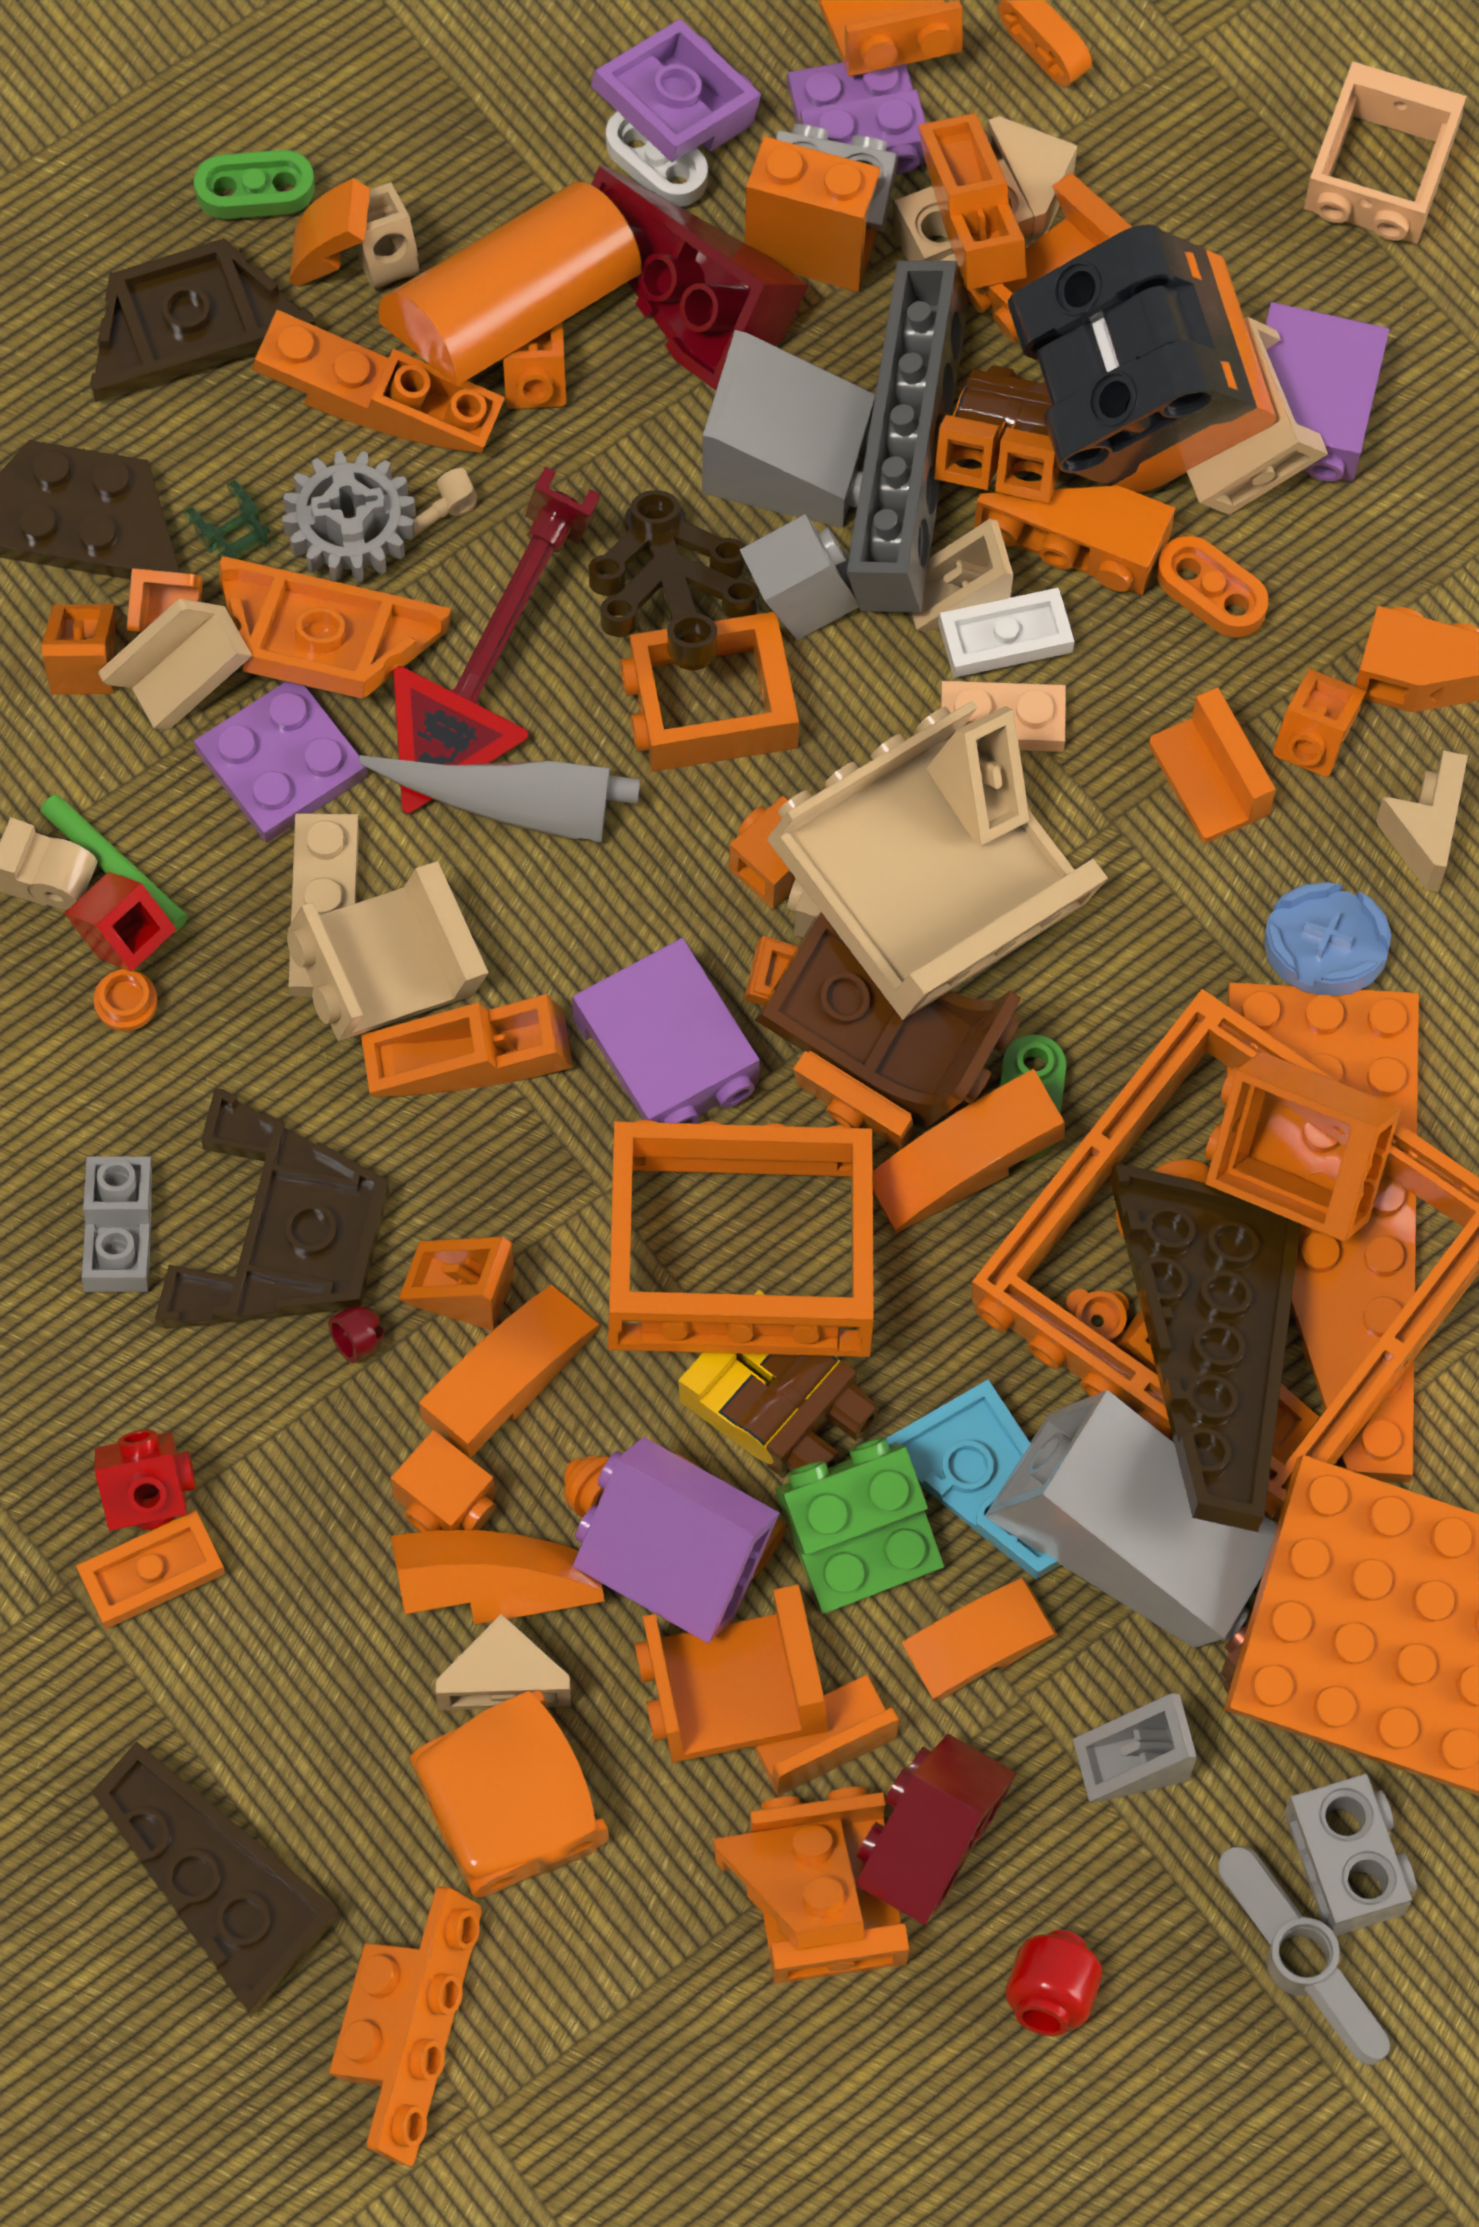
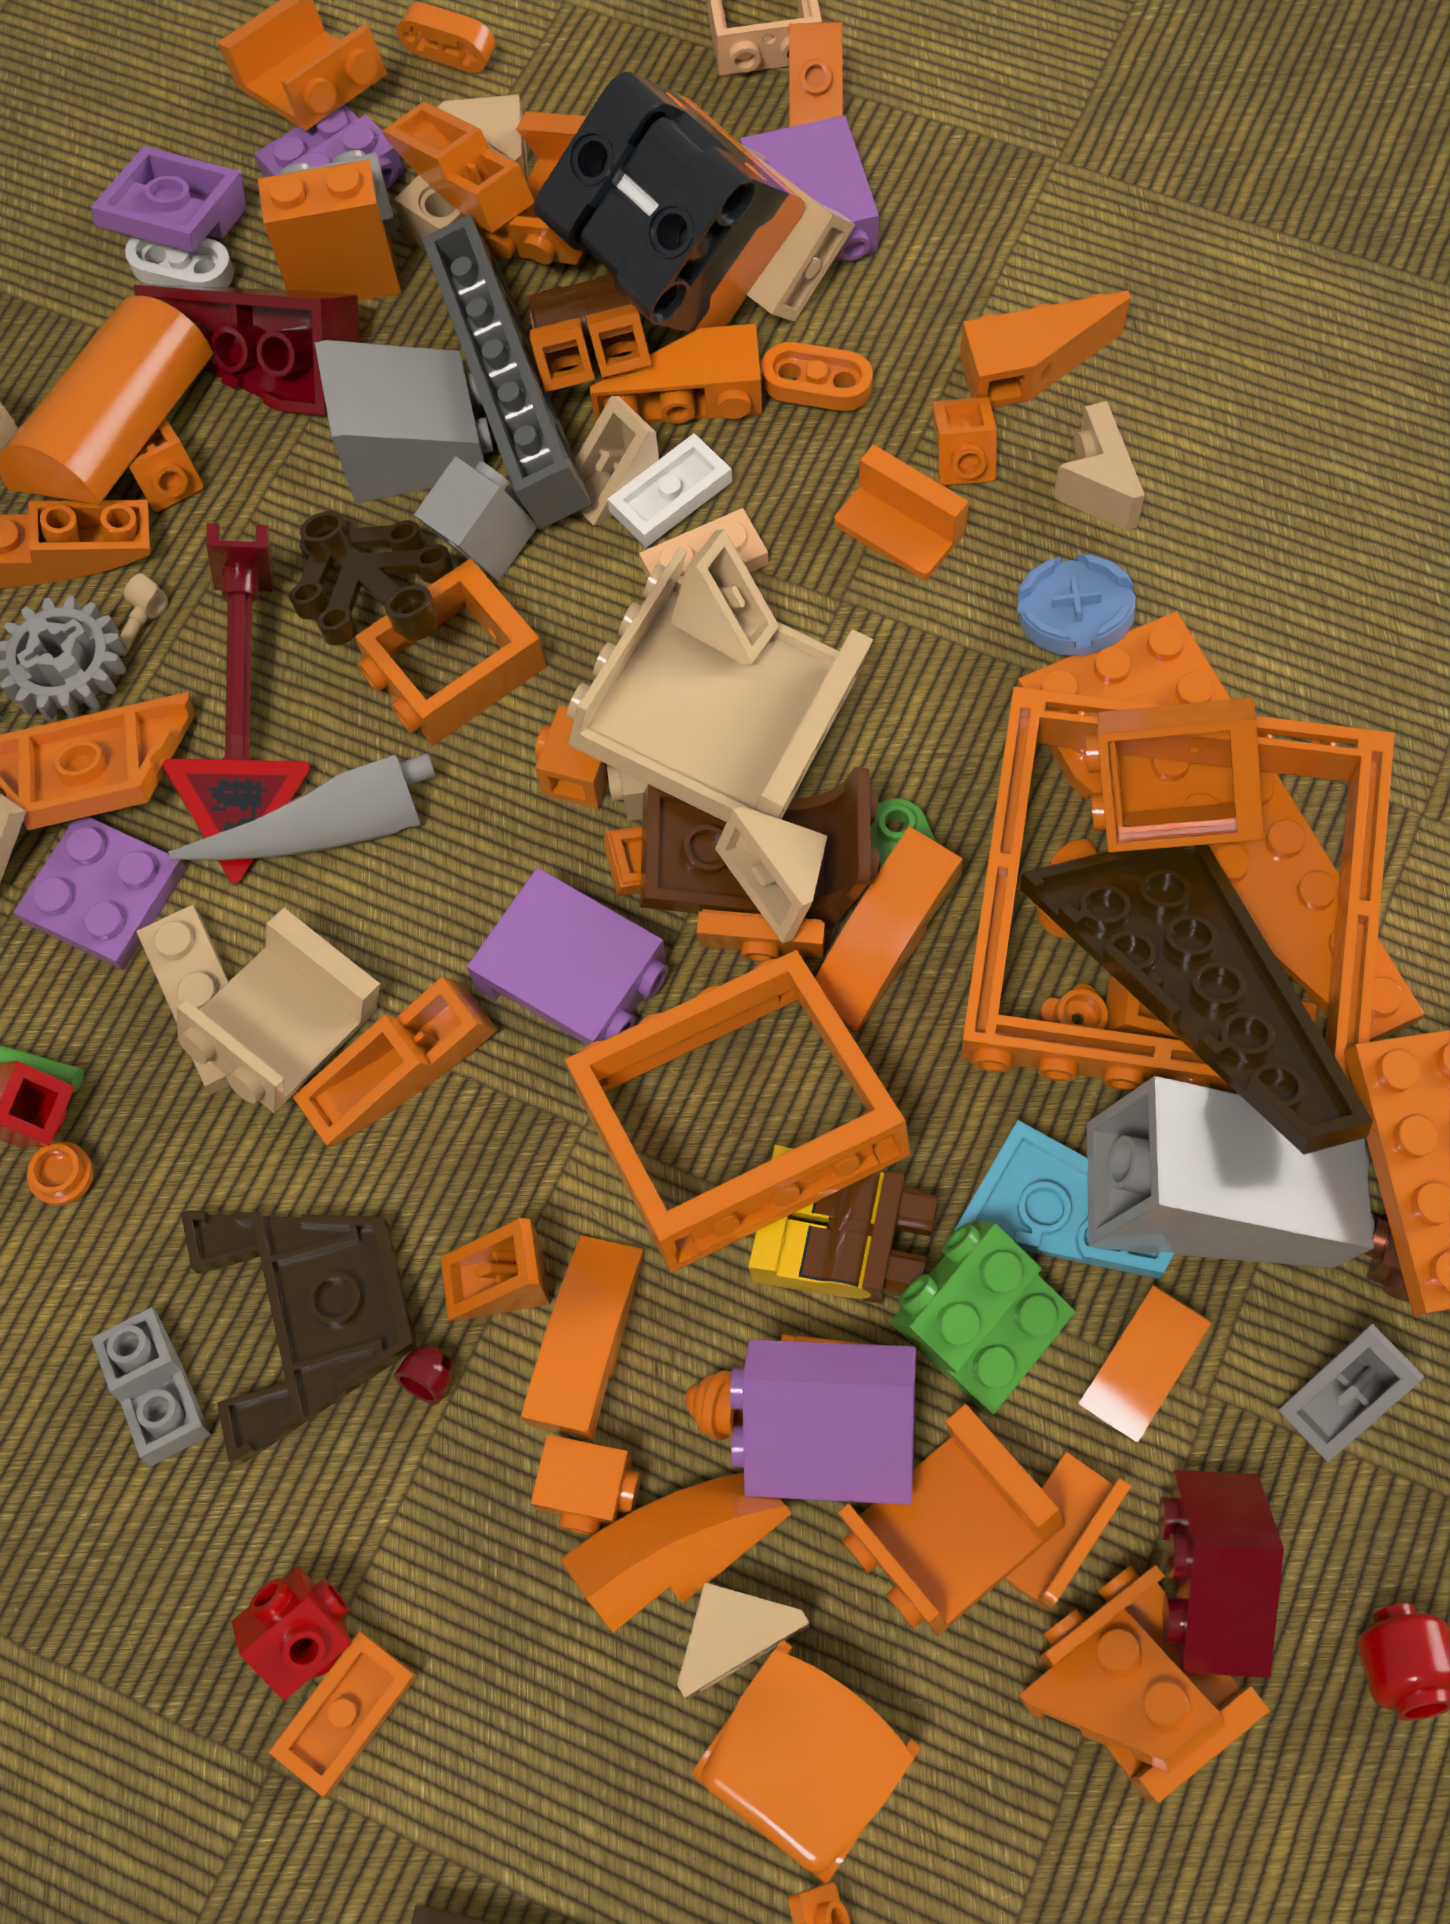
camera: 20 degrees left, 0 degrees up
(891, 1042) = (774, 865): none -> tan slope
(1388, 269) = (815, 72): none -> orange plate

